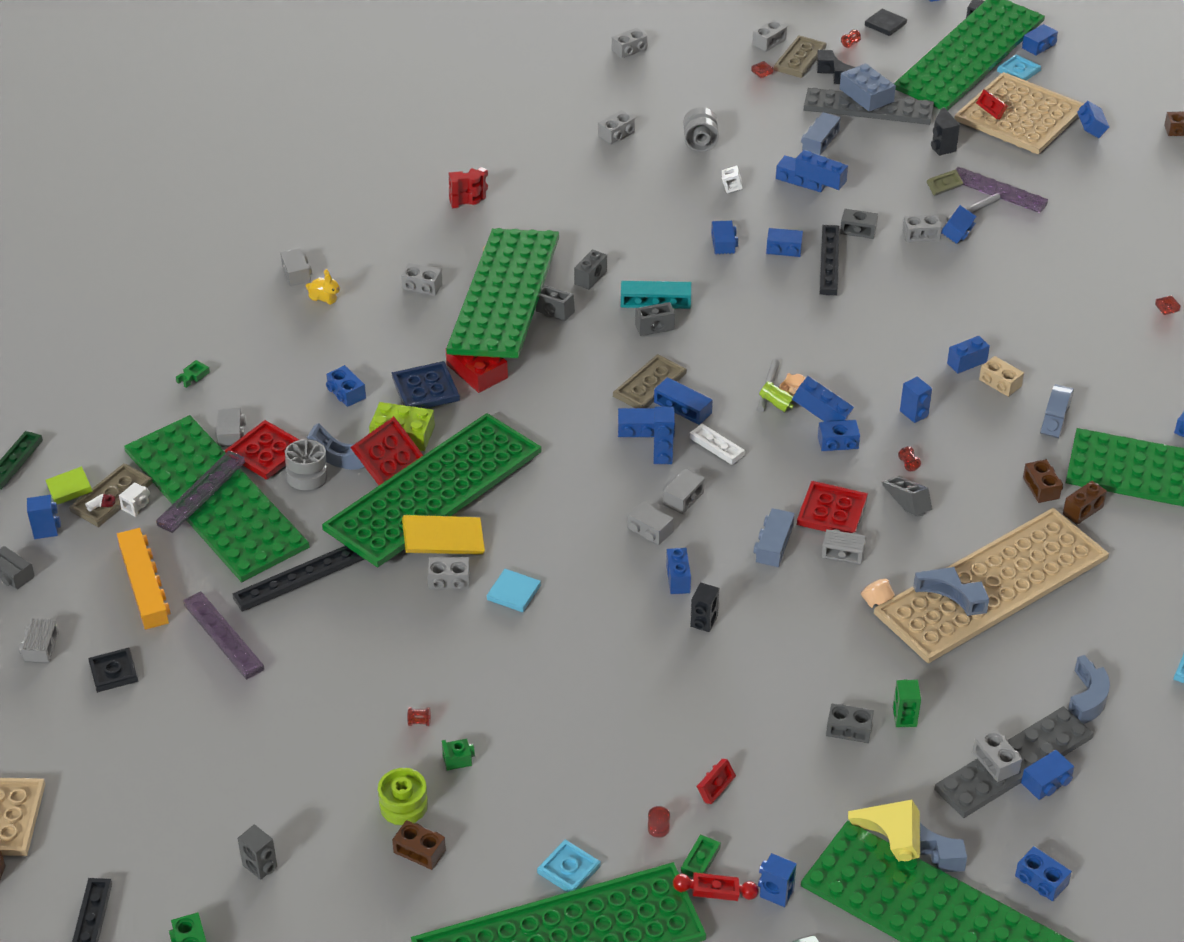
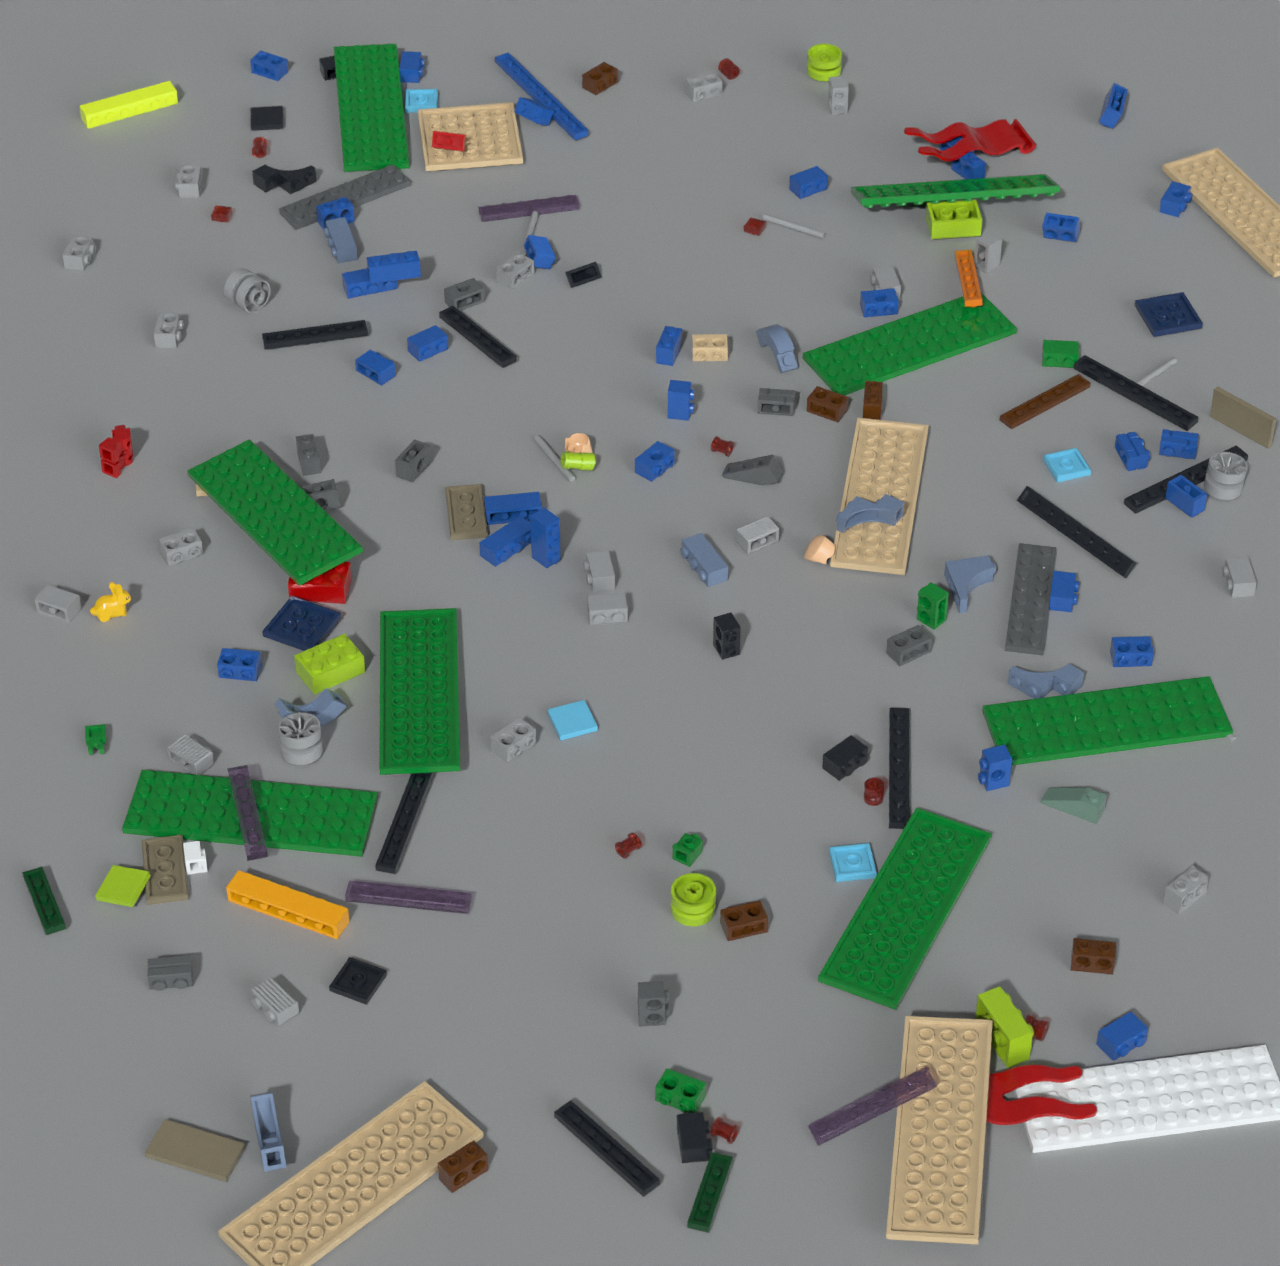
camera: 45 degrees left, 0 degrees up
(43, 516) = (146, 918): blue brick -> none
(101, 501) = (172, 875): arm -> none
(263, 449) = (244, 747): red plate -> none
(386, 451) = (355, 687): red plate -> none
(443, 534) = (476, 715): yellow tile -> none
(647, 293) = (384, 443): teal brick -> none
(673, 776) = (845, 758): none -> black brick
(678, 570) = (671, 626): blue brick -> none
(700, 856) = (926, 793): green plate -> none
(711, 817) = (898, 768): none -> black plate
(713, 189) = (314, 334): none -> black plate
(715, 886) = (959, 802): red plate -> none
(716, 781) = (873, 737): red plate -> none
(717, 444) = (582, 523): white plate -> none
(731, 179) = (320, 315): white brick -> none
(799, 56) = (235, 185): dark tan tile -> none
(821, 401) = (619, 443): blue brick -> none
(831, 508) = (715, 514): red plate -> none
(841, 108) = (333, 210): none -> blue brick
(867, 87) = (336, 179): sand blue brick -> none
(897, 822) = (1023, 681): light yellow arch -> none
(944, 182) = (485, 225): olive plate -> none
(945, 133) = (441, 184): black slope -> none
(973, 261) = (583, 274): none -> black slope
(975, 700) = (966, 575): none -> sand blue arch
(997, 755) = (1026, 598): light grey brick -> none
(1001, 452) = (776, 401): none -> dark grey brick
(1090, 703) = (1023, 515): sand blue arch -> none
(1117, 113) = (541, 95): none -> blue plate
(1129, 734) = (1076, 531): none -> black plate

